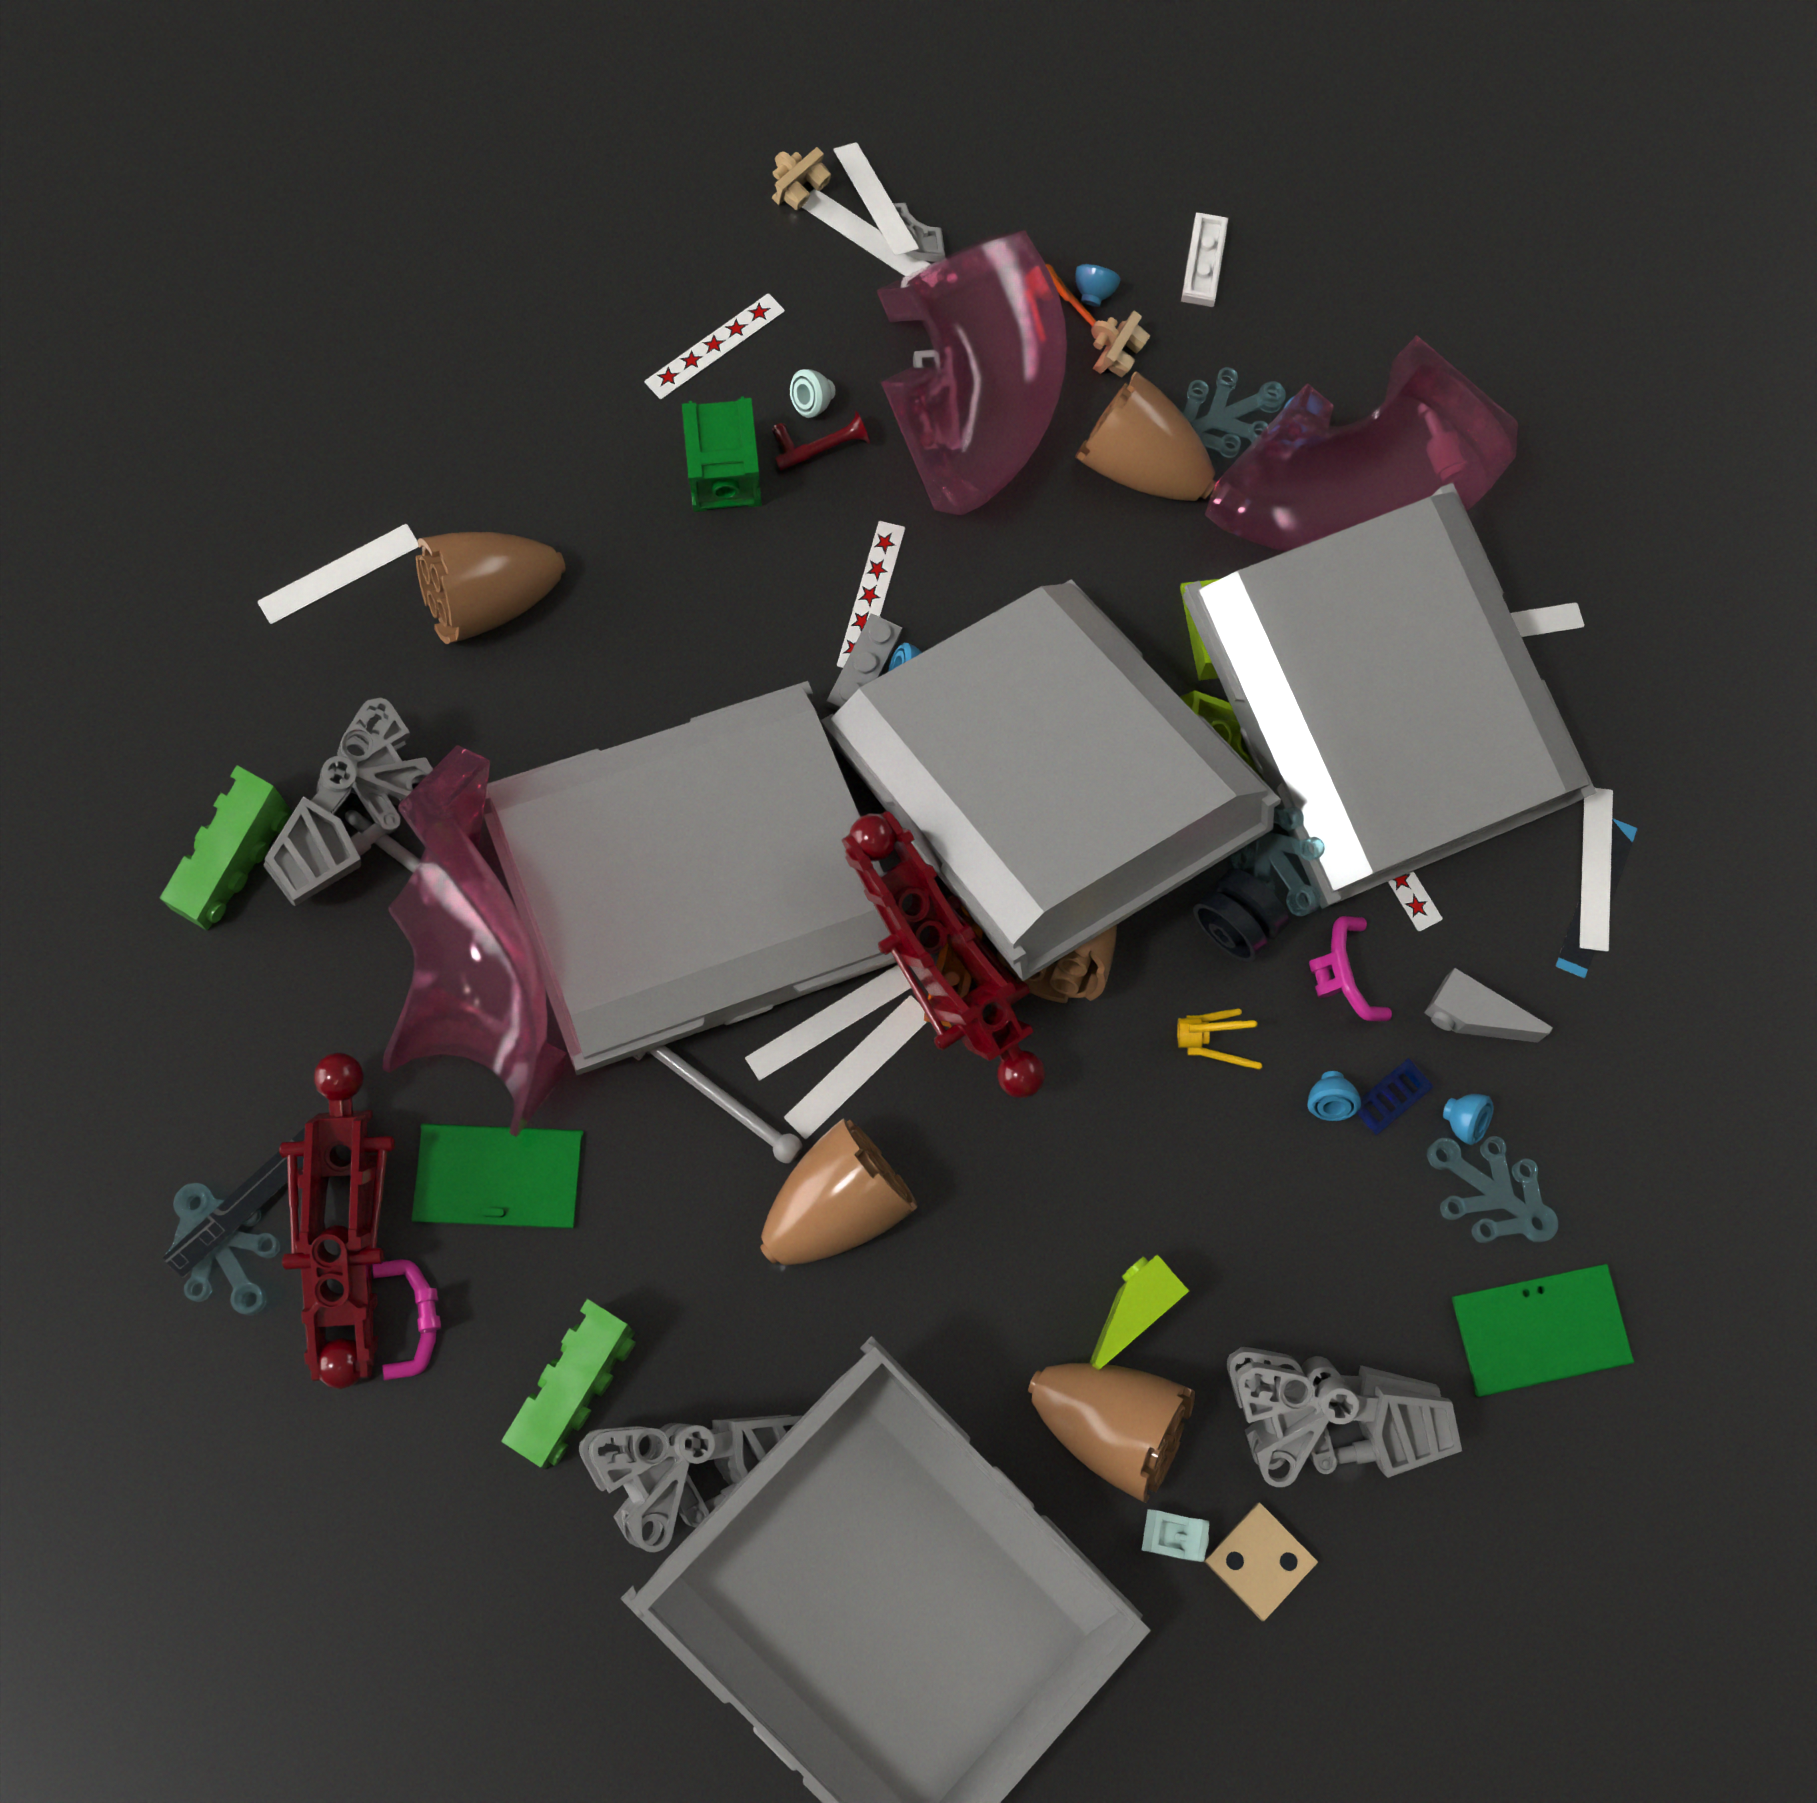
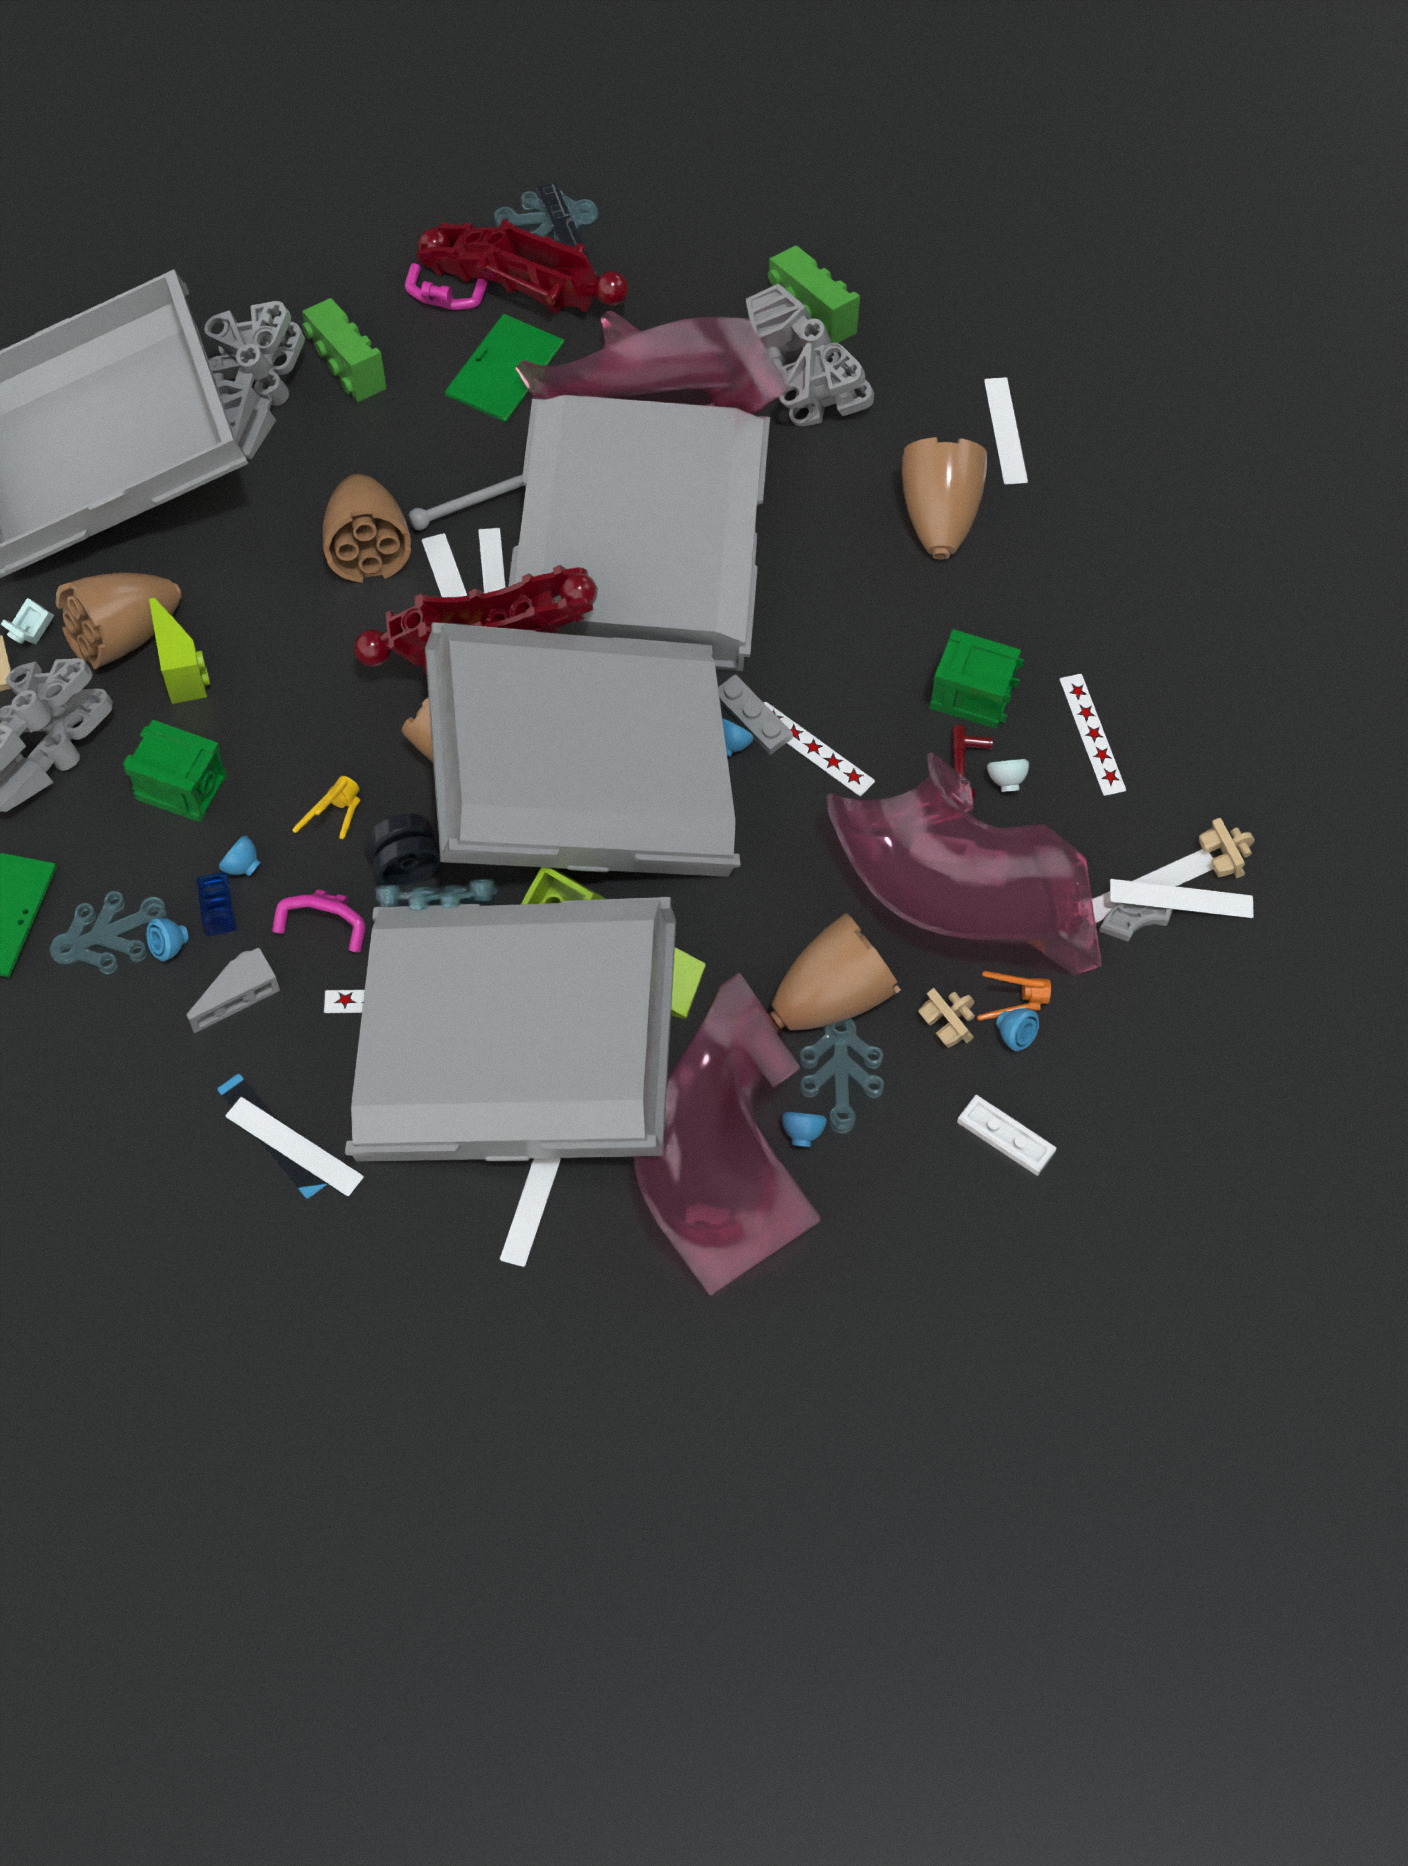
camera: 120 degrees right, 10 degrees down
(1282, 1218) = (175, 770): none -> green container

